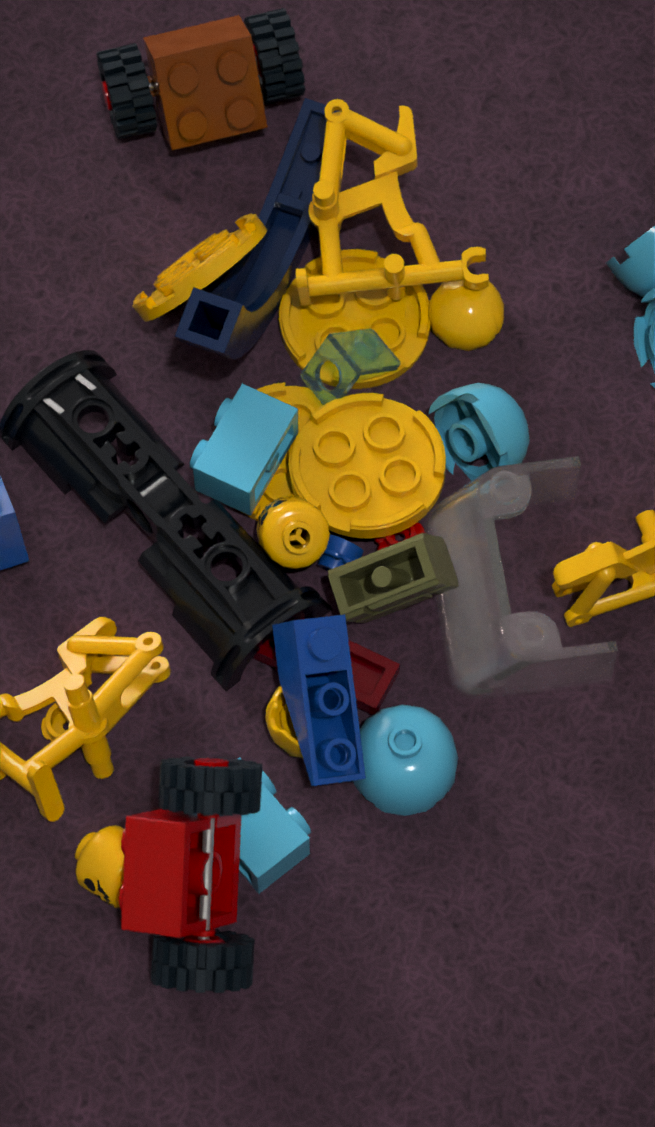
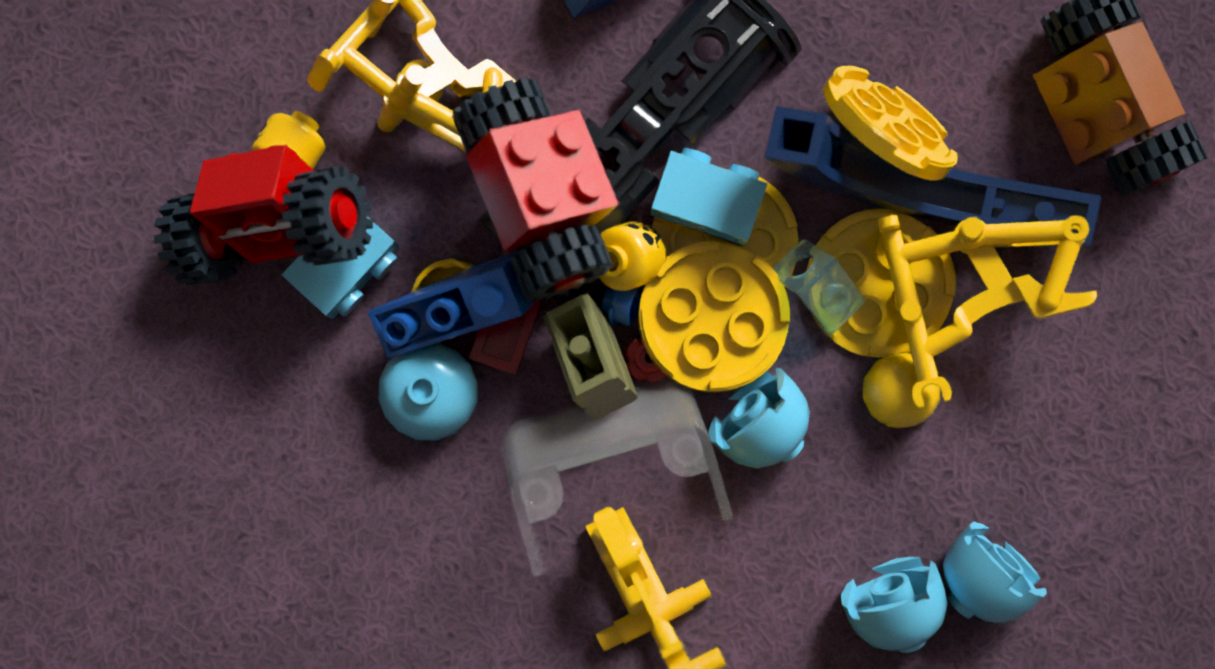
camera: 85 degrees right, 20 degrees up
(211, 576) = (538, 185): none -> brick

